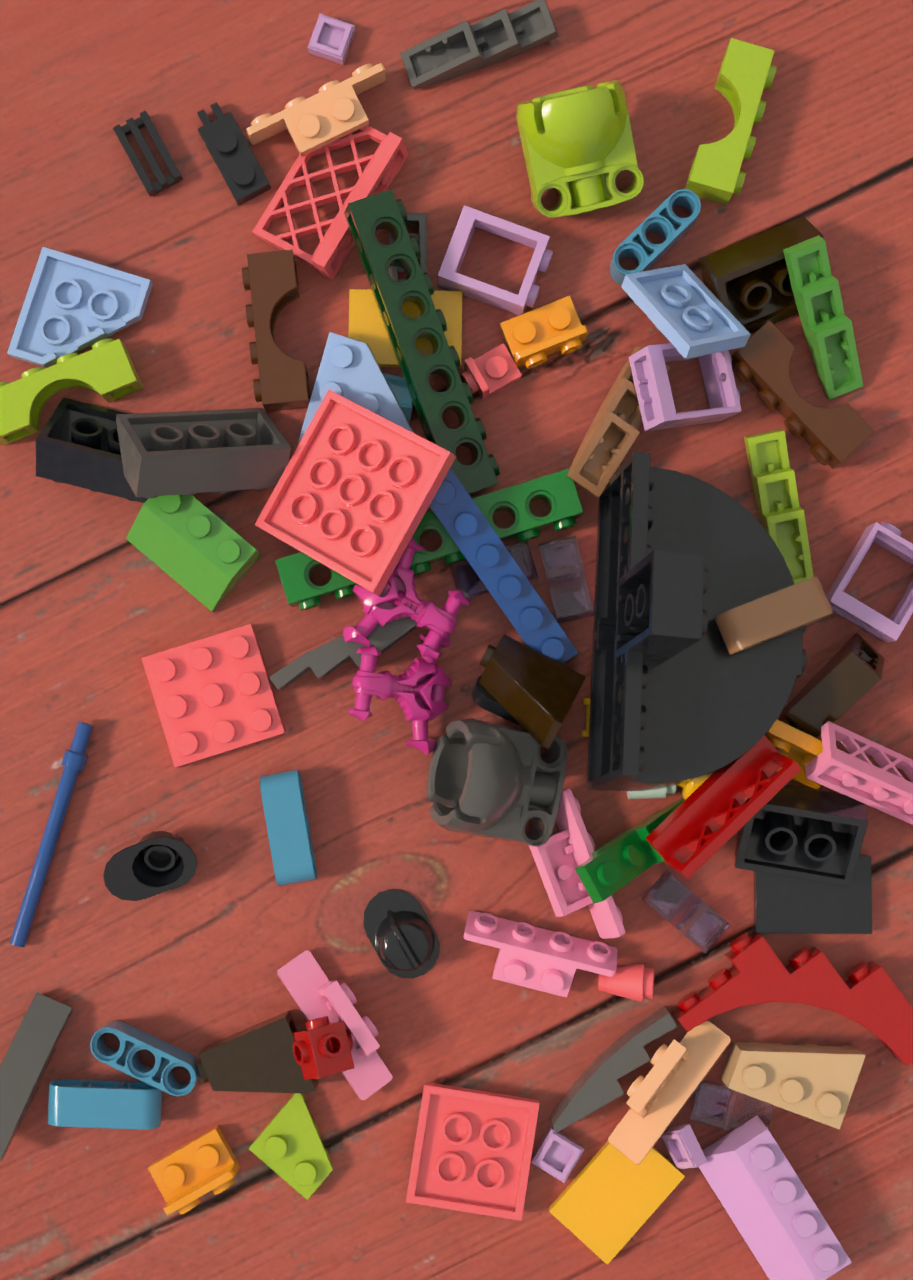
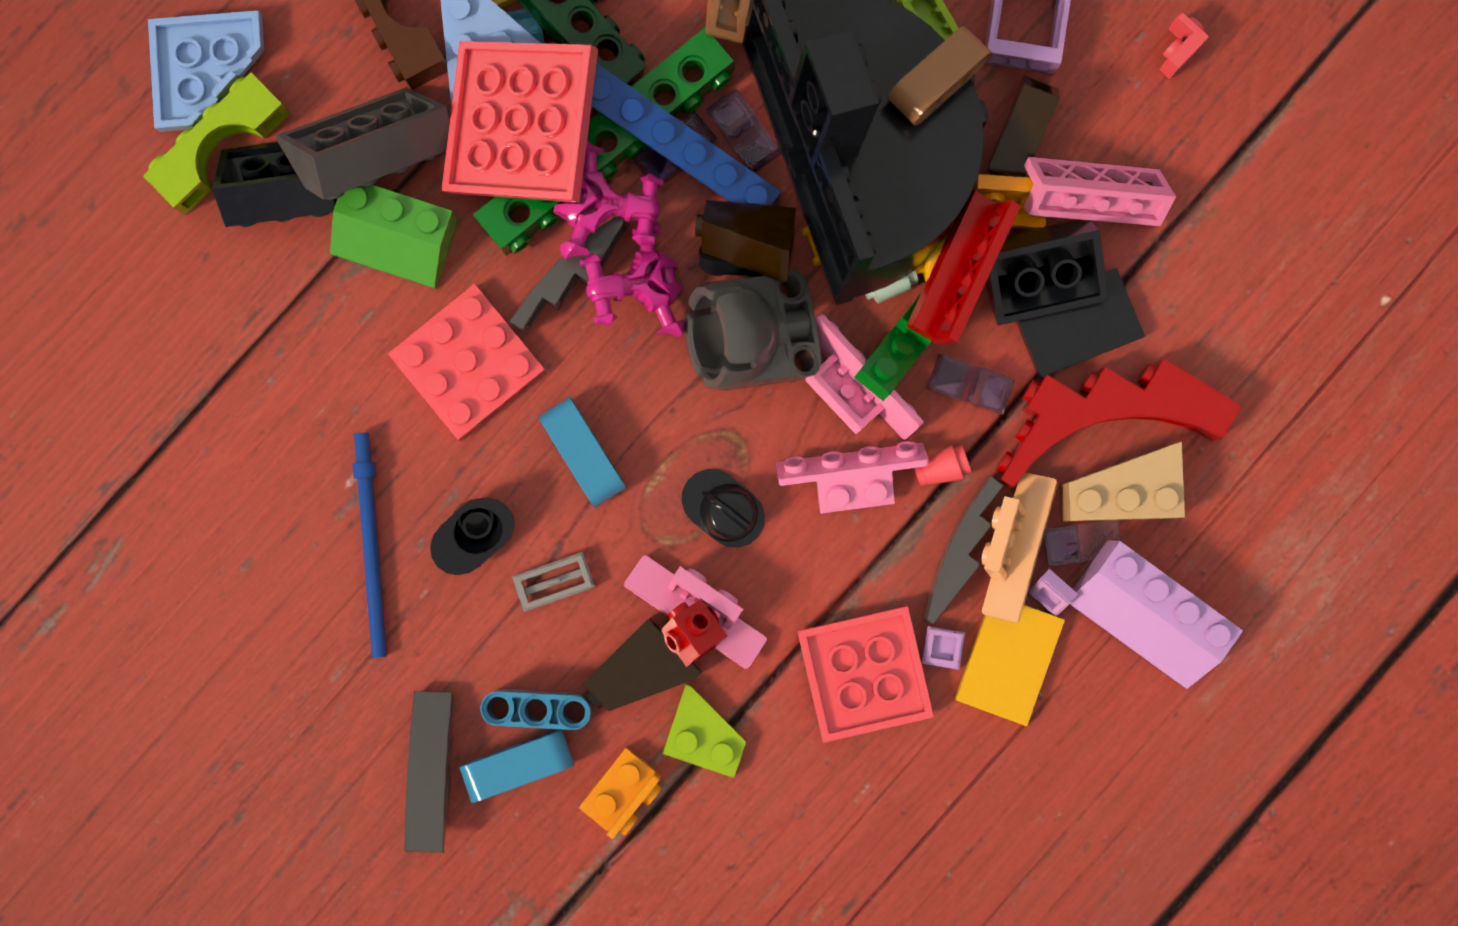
camera: 15 degrees left, 0 degrees up
(244, 940) = (583, 571): none -> light grey tile

